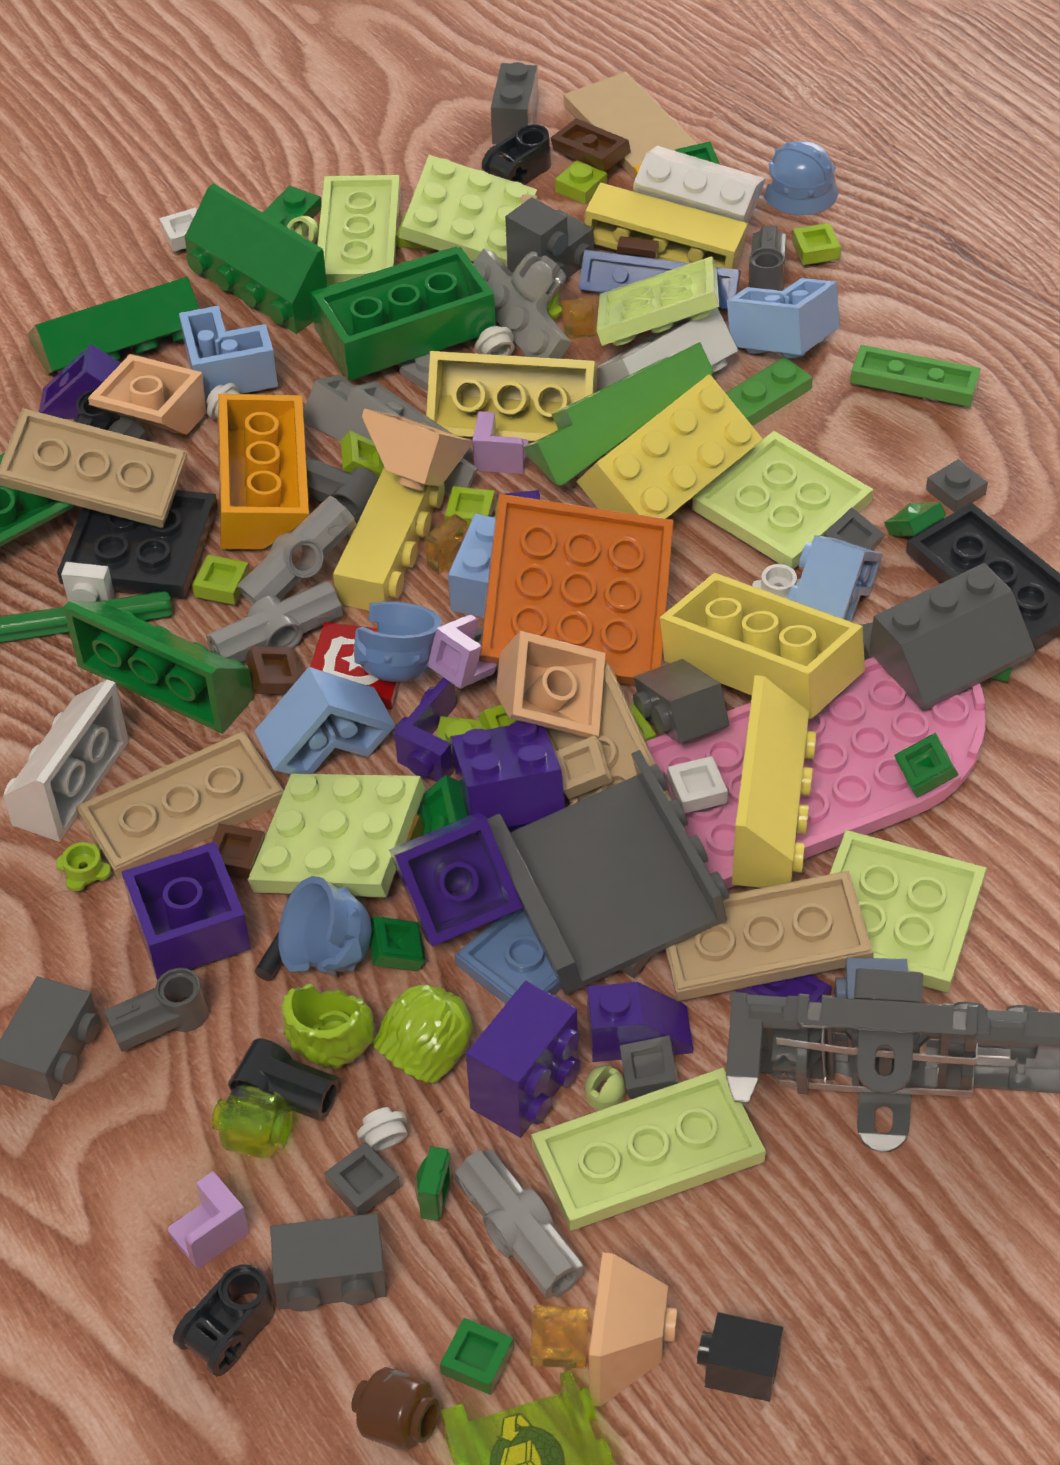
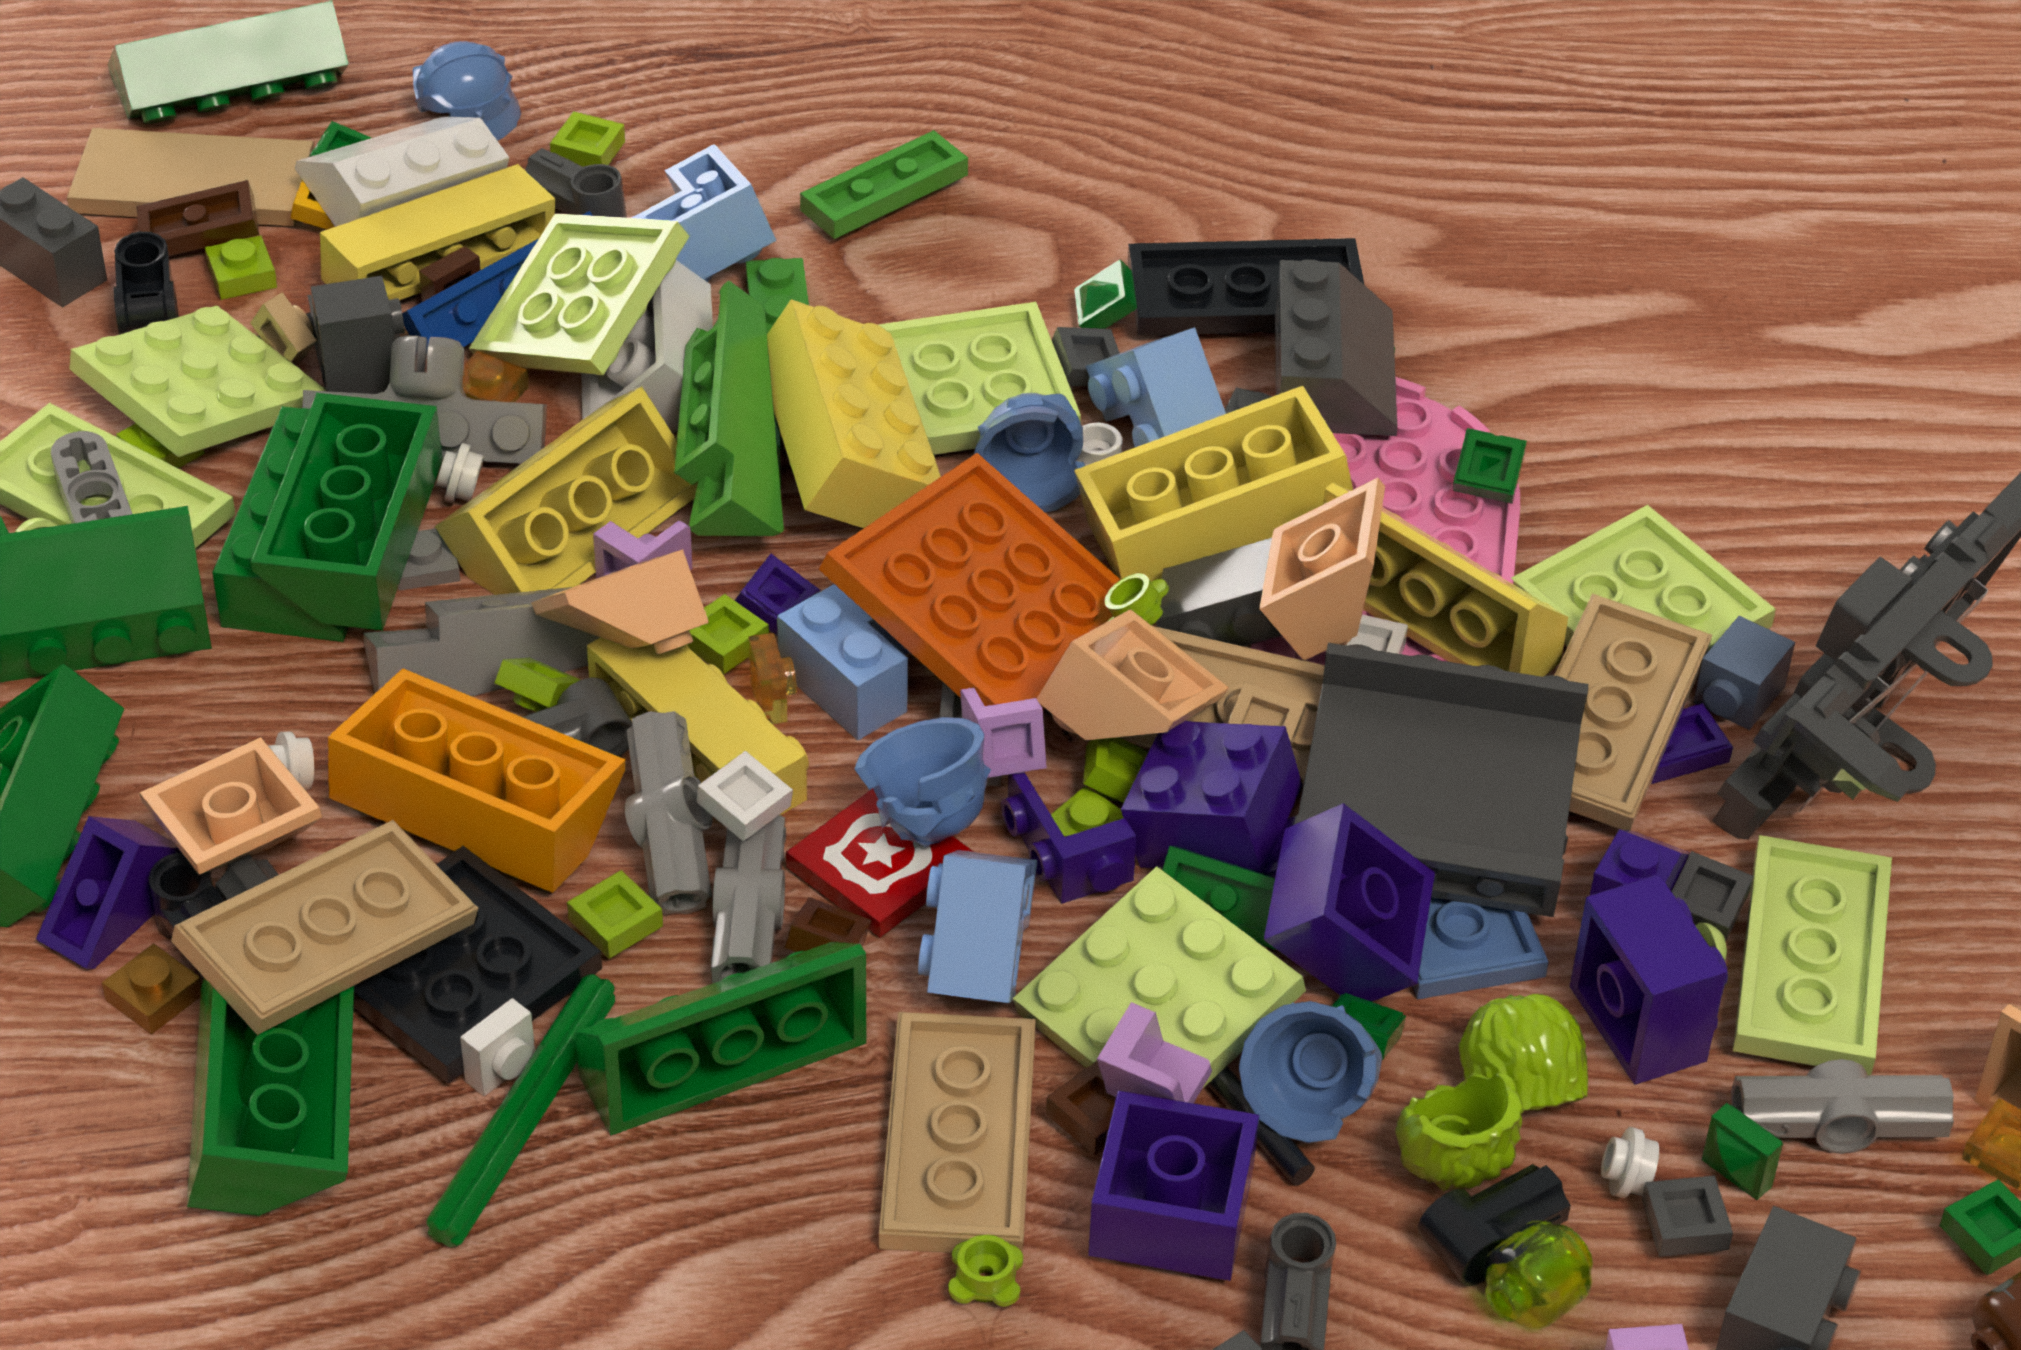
camera: 60 degrees left, 5 degrees down
(68, 763) = (816, 1193): white slope -> none
(228, 356) = (186, 720): light blue brick -> none
(255, 850) = (1144, 1064): none -> lavender panel
(316, 572) = (744, 795): none -> white plate
(353, 210) = (99, 480): none -> light grey beam
(632, 658) = (1139, 595): none -> lime plate
(696, 719) = (1323, 570): none -> light nougat slope
(726, 83) = (228, 61): none -> slope
(728, 545) = (1035, 447): none -> medium blue helmet
(956, 485) = (1075, 247): dark grey plate -> none

